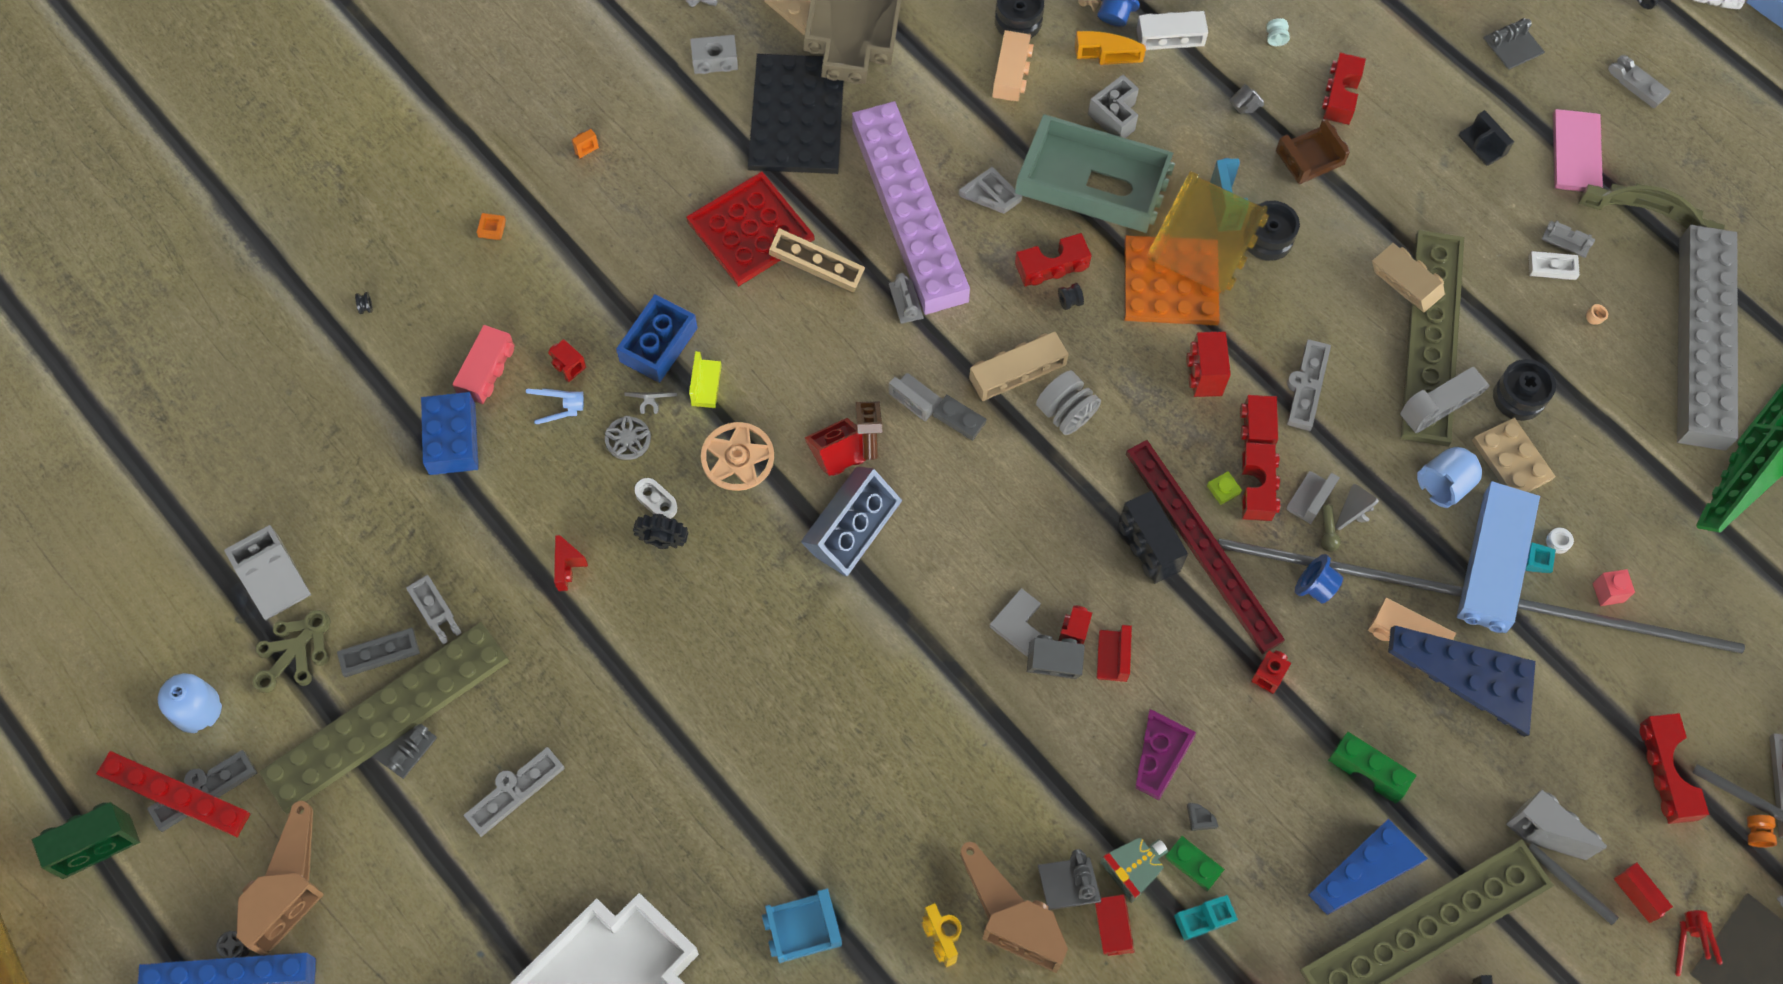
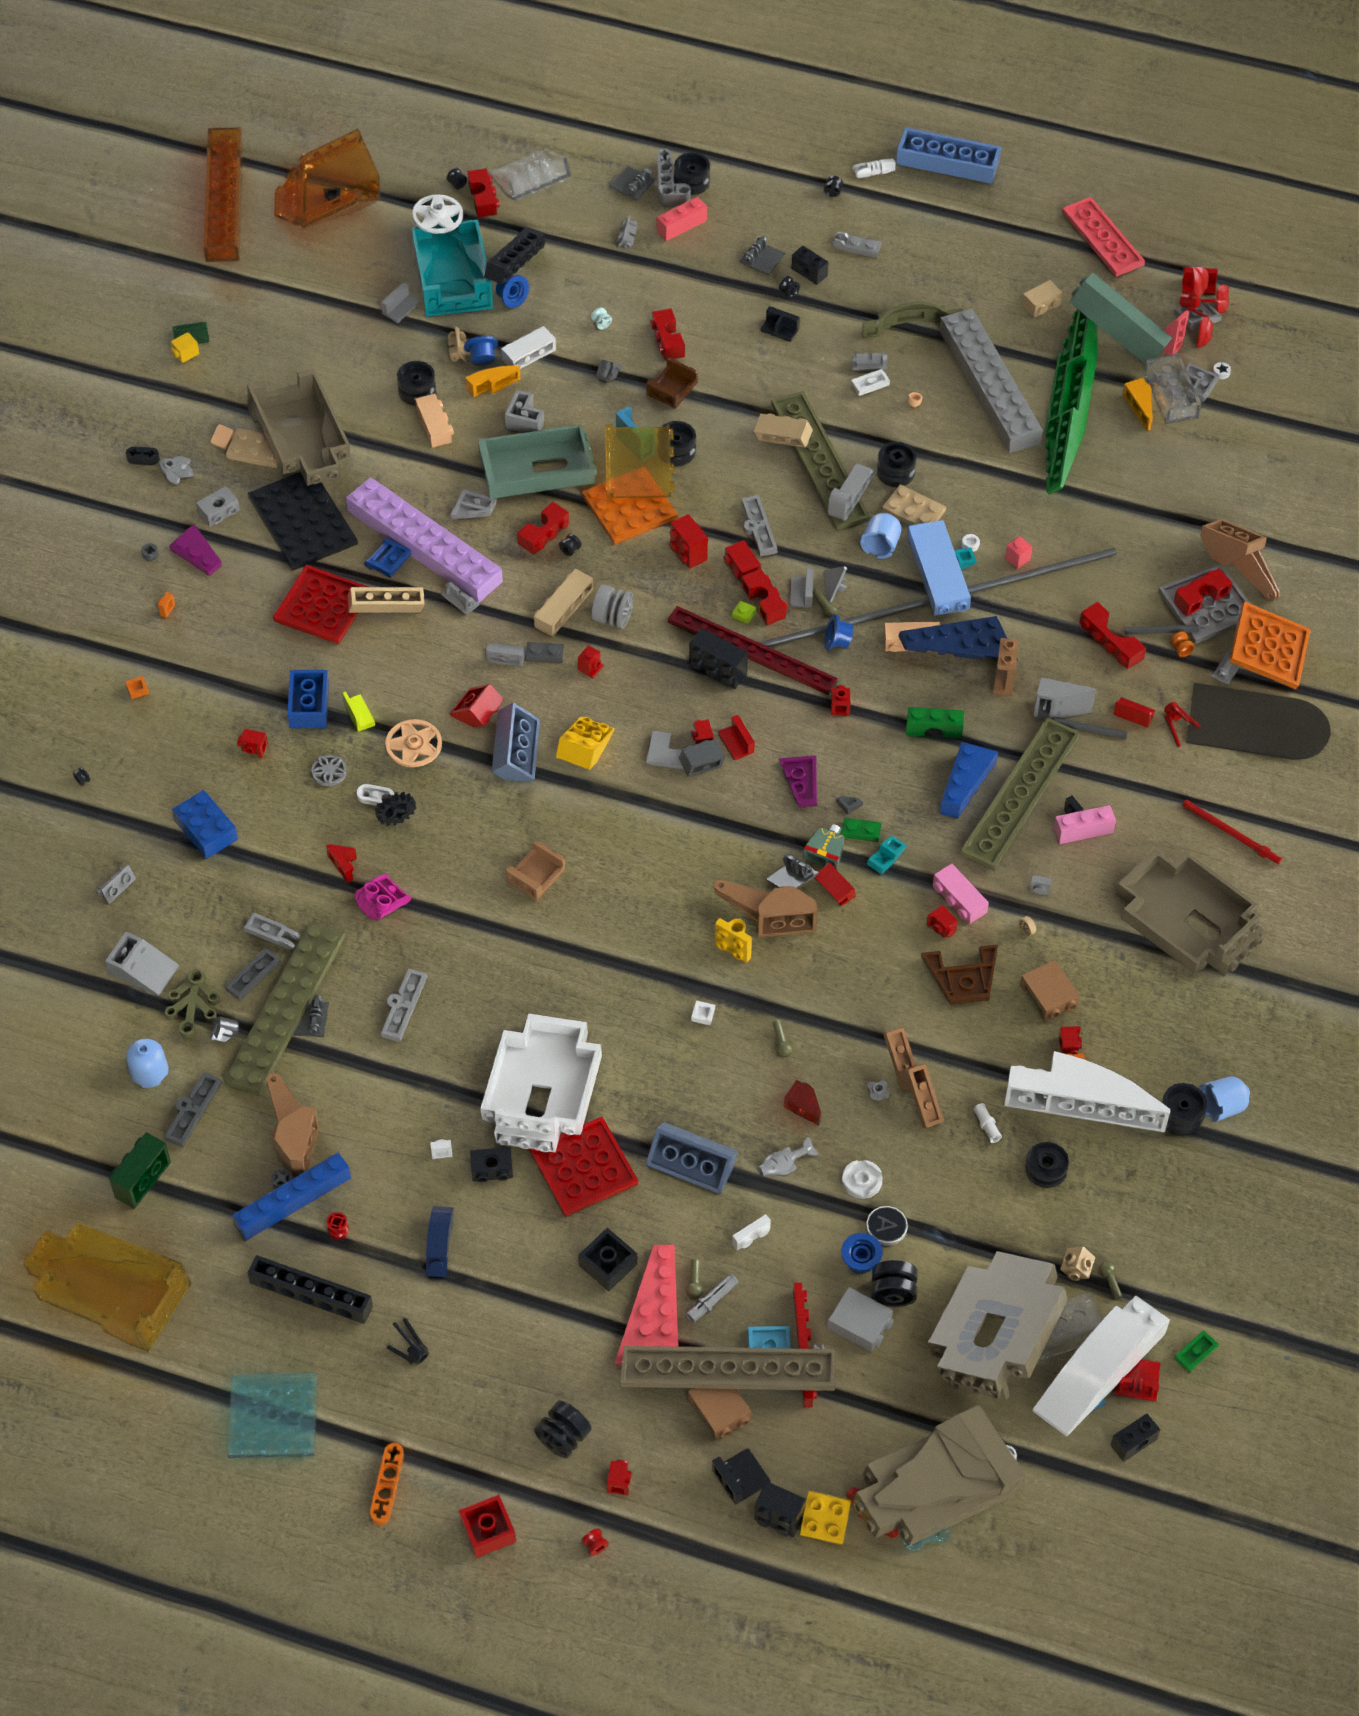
camera: 30 degrees left, 10 degrees down
(173, 794) = (177, 1117): red plate -> none
(300, 706) = (224, 1029): none -> flat silver piece
(309, 457) = (117, 884): none -> light grey hinge
(484, 363) = (197, 770): coral brick -> none
(571, 399) = (274, 765): light blue plant -> none
(578, 634) = (380, 897): none -> dark pink slope
(609, 66) = (147, 547): none -> dark grey bush
(649, 398) = (327, 737): light grey piece -> none
(660, 95) = (196, 551): none -> magenta wing
(773, 699) = (536, 870): none -> medium nougat panel
(802, 927) = (644, 983): dark azure panel -> none
(861, 212) = (391, 560): none -> blue plate
(869, 424) = (492, 677): reddish brown piece -> none
(932, 560) = (584, 742): none -> yellow slope
(1001, 458) = (590, 662): none -> red brick
(1506, 743) = (1006, 667): none -> medium nougat panel
(1524, 97) = (789, 286): none -> black wheel
(1565, 81) = (809, 265): none -> black brick
(1577, 150) = (842, 305): bright pink tile -> none

